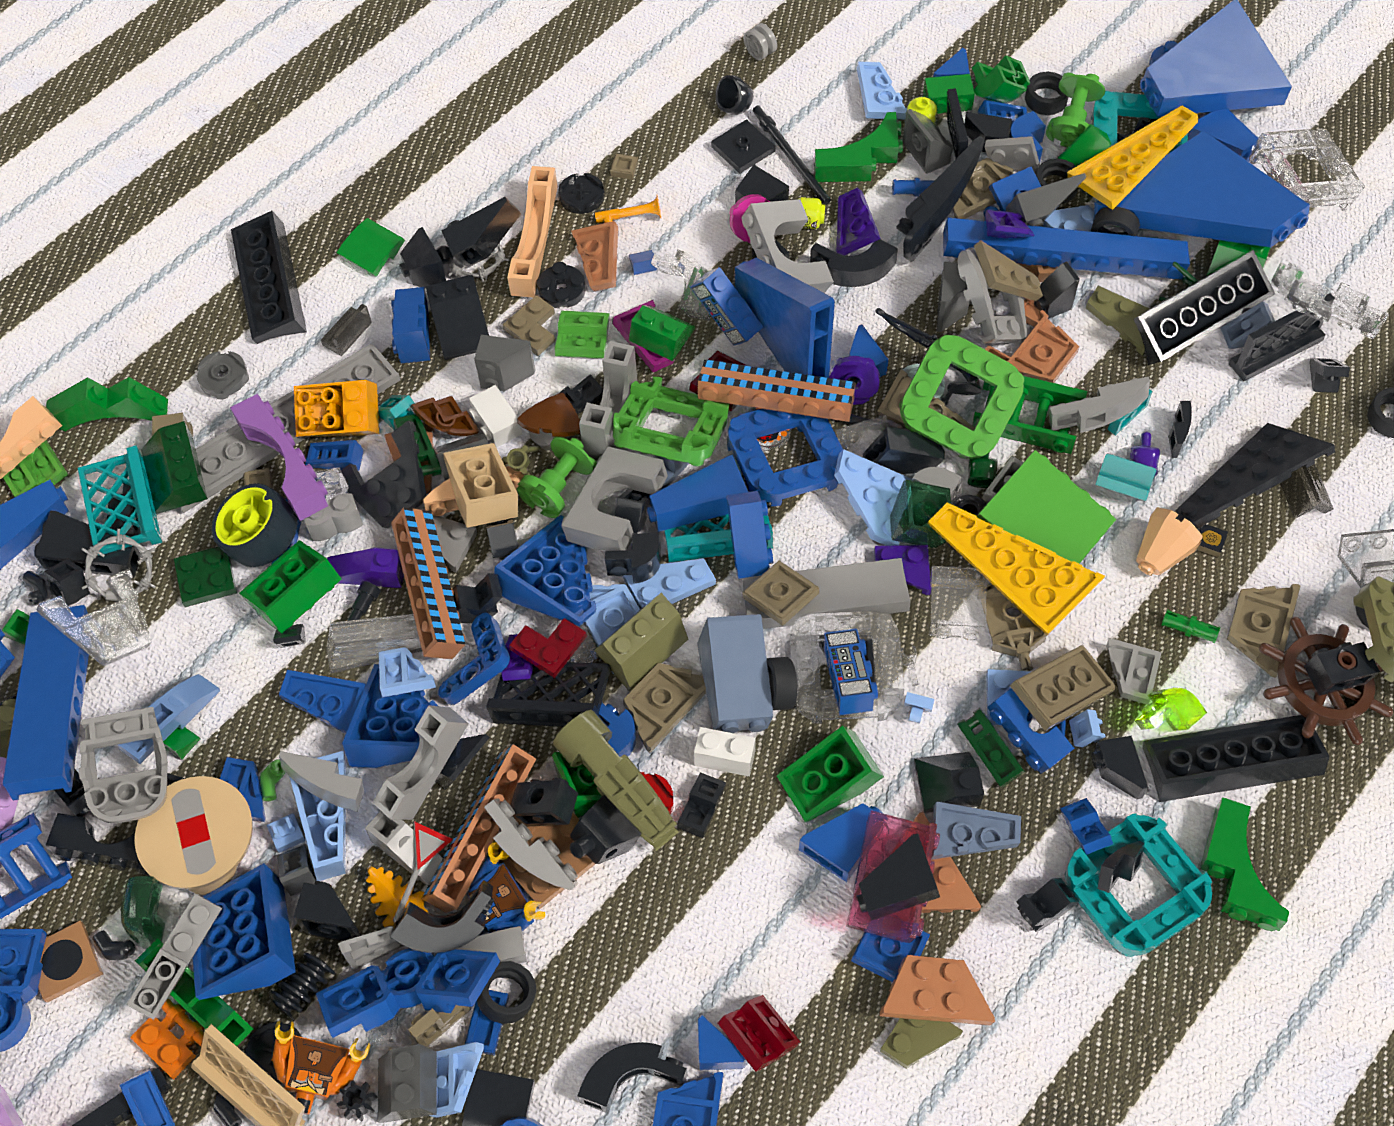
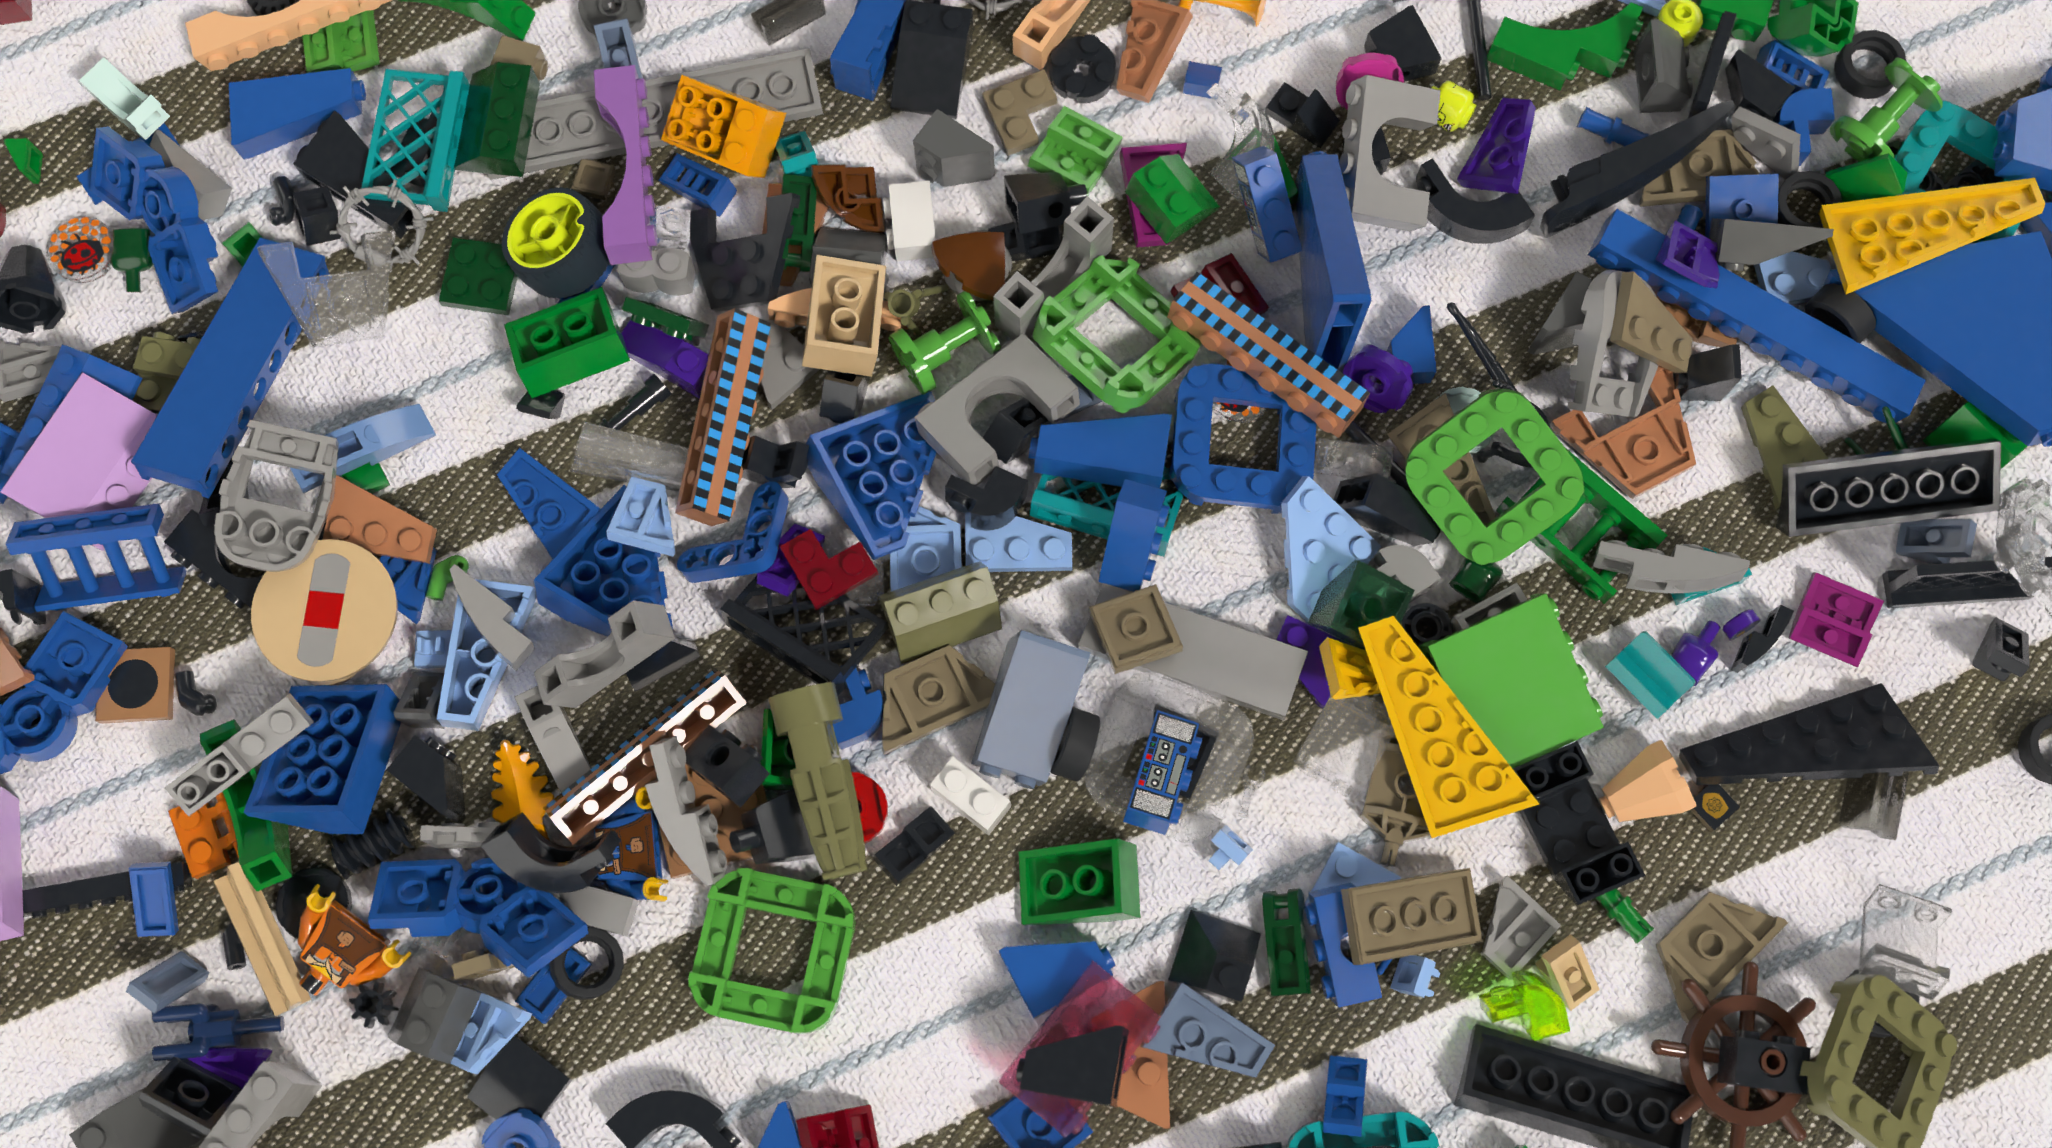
camera: 25 degrees right, 15 degrees up
(140, 910) = (231, 676): clear green brick -> none
(209, 760) = (377, 525): none -> nougat wing
(235, 388) = (617, 44): none -> sand blue slope
(353, 540) = (656, 316): none -> dark green plate
(427, 845) = (577, 747): light grey piece -> none
(575, 367) = (1040, 200): none -> black torso
(647, 962) = (721, 937): none -> bright green plate
(723, 254) = (1304, 115): none -> black slope
(936, 555) = (1347, 670): none -> yellow wing
(1120, 765) = (1429, 1041): black slope -> none
(1131, 591) = (1573, 827): none -> black slope
(1162, 426) = (1741, 624): none -> dark purple tile
(1182, 674) = (1568, 972): none -> tan slope
(1217, 399) = (1835, 619): none -> magenta slope

